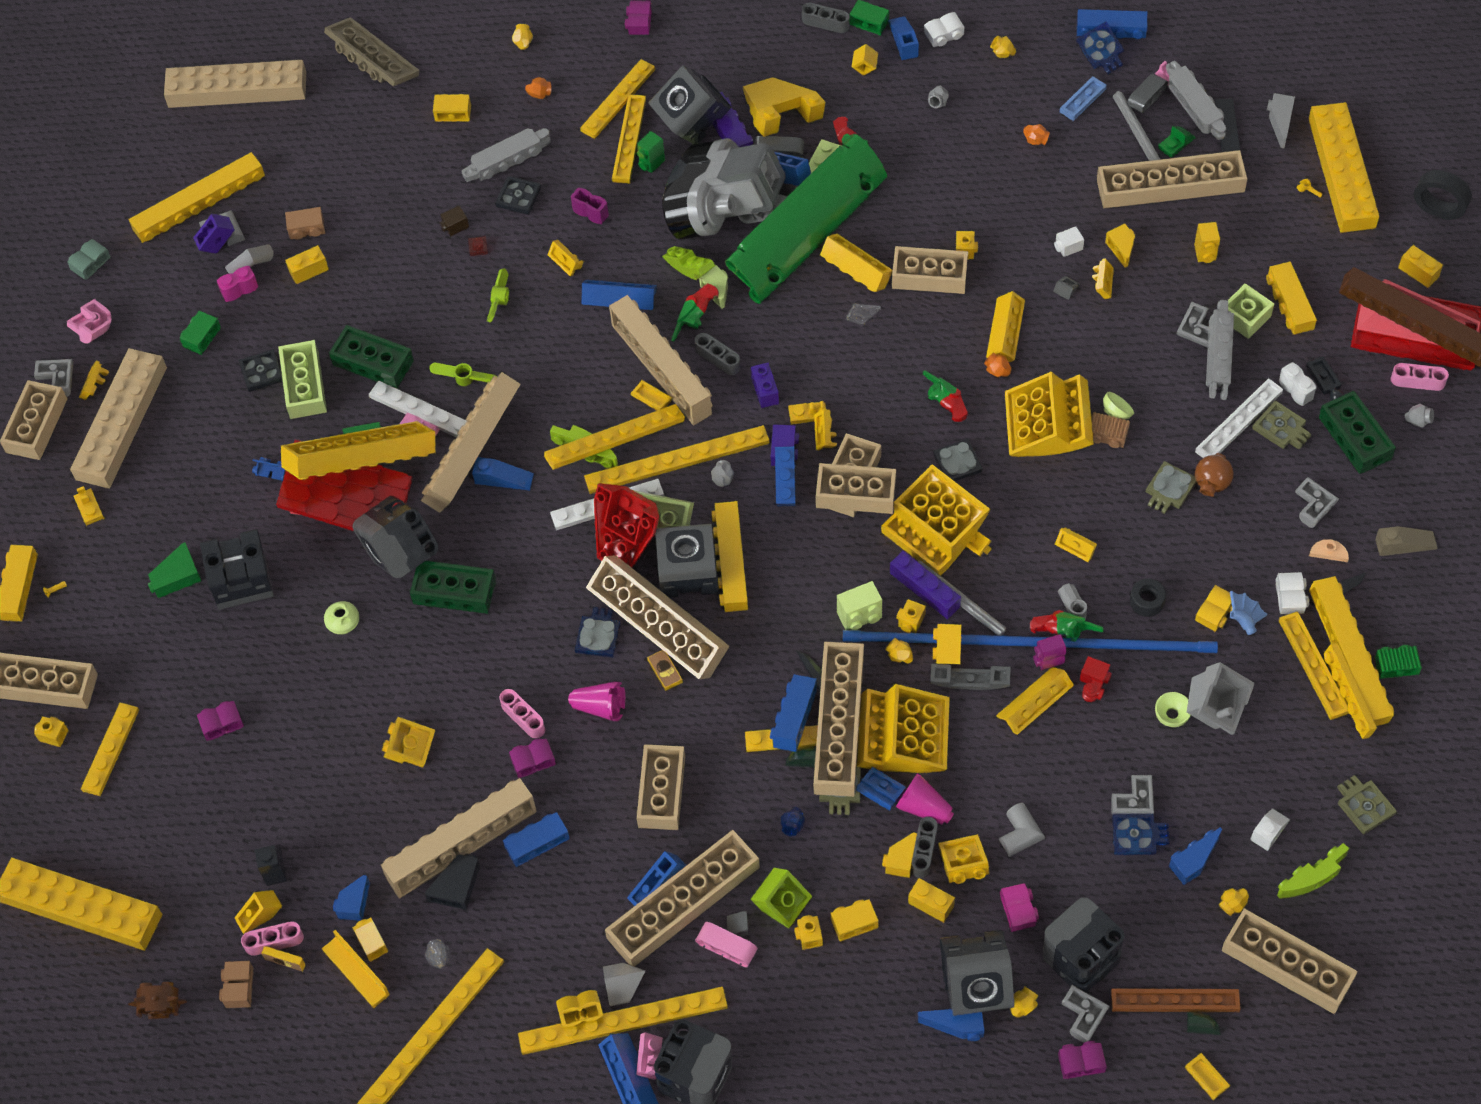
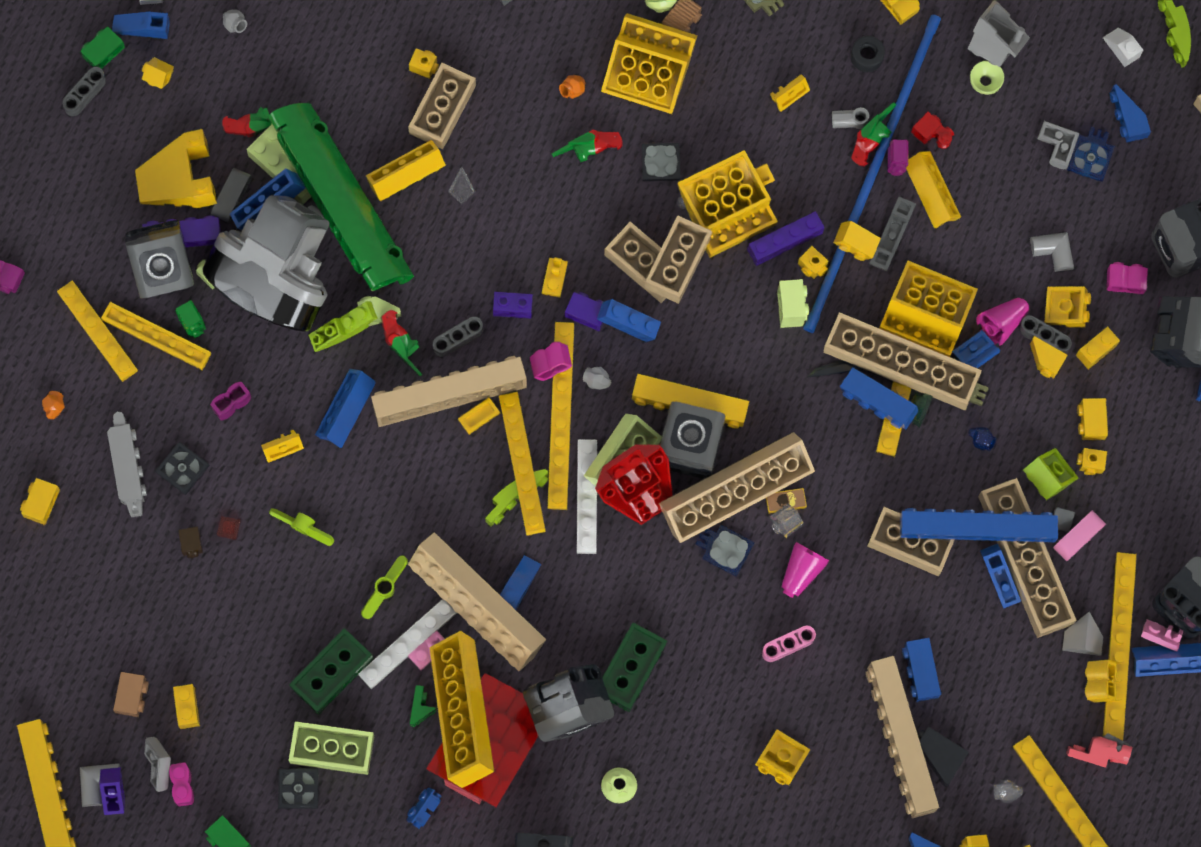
camera: 80 degrees left, 15 degrees up
(505, 1030) = (1101, 750): none -> coral plate
(532, 757) = (837, 648): magenta brick -> none
(642, 672) = (786, 521): none -> clear brick
(692, 834) = (978, 526): none -> blue brick
(721, 429) = (550, 361): none -> dark pink brick
(822, 430) = (585, 269): yellow plate -> none
(899, 651) = (844, 286): yellow rock -> none
(972, 607) = (820, 208): light grey axle -> none
(1006, 326) = (530, 63): yellow panel -> none
(1234, 900) = (1179, 102): yellow rock -> none

